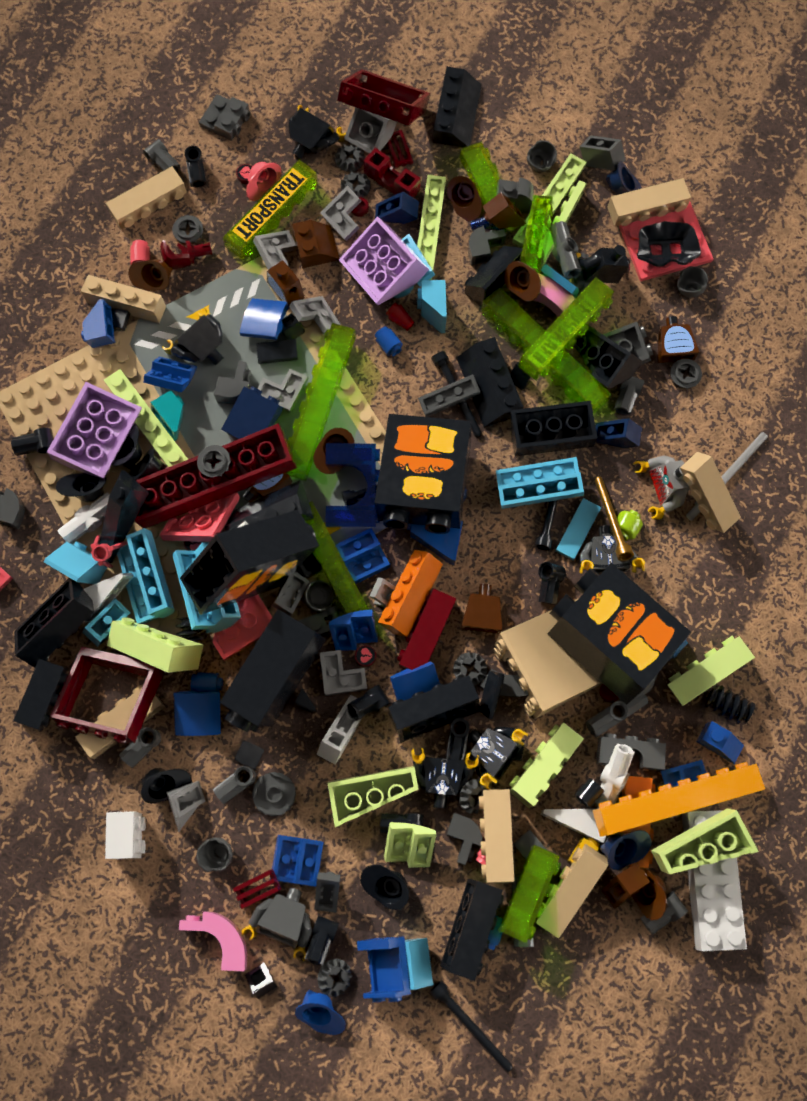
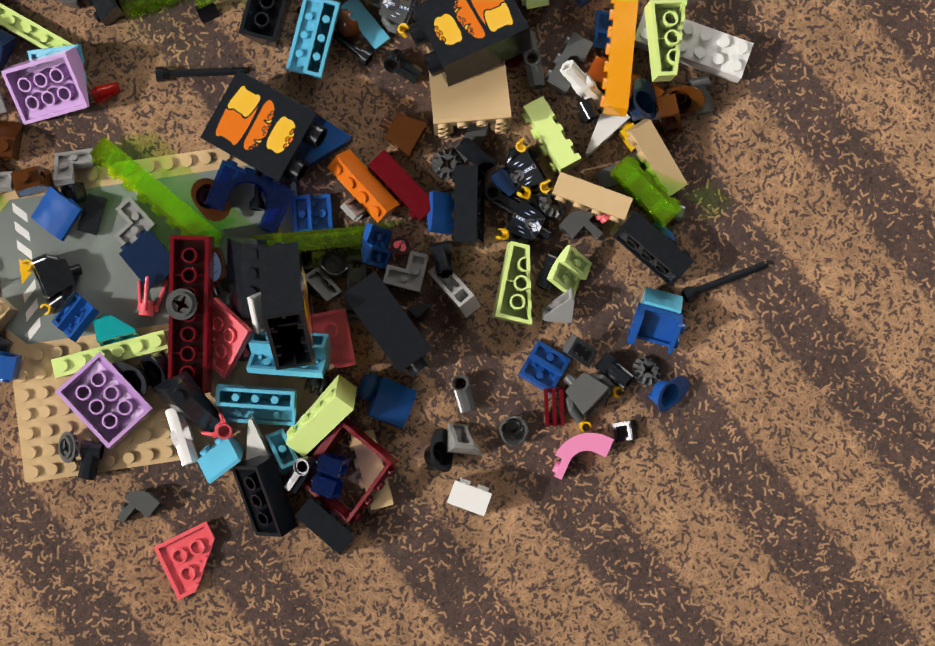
camera: 70 degrees left, 10 degrees up
(38, 417) = (68, 447): none -> dark grey gear
(81, 485) = (150, 430): black piece -> none
(87, 648) = (300, 474): none -> black piece
(87, 676) = (328, 470): none -> clear blue piece
(137, 751) = (404, 466): dark grey piece -> none
(205, 435) = (146, 306): none -> coral plant
(229, 389) = (114, 266): dark grey brick -> none
(249, 754) = (443, 373): black slope -> none
(280, 793) = (483, 365): dark grey tile -> none
(365, 851) = (560, 308): none -> light grey slope
(385, 886) = (594, 303): black piece -> none
(388, 341) = (125, 112): blue brick -> none
(432, 302) = (108, 57): medium azure slope -> none
(449, 395) = (199, 80): dark grey tile -> none
(475, 733) = (503, 181): none -> dark blue cone
(493, 379) = (201, 40): black slope -> none
(565, 510) = (346, 26): none -> reddish brown hair

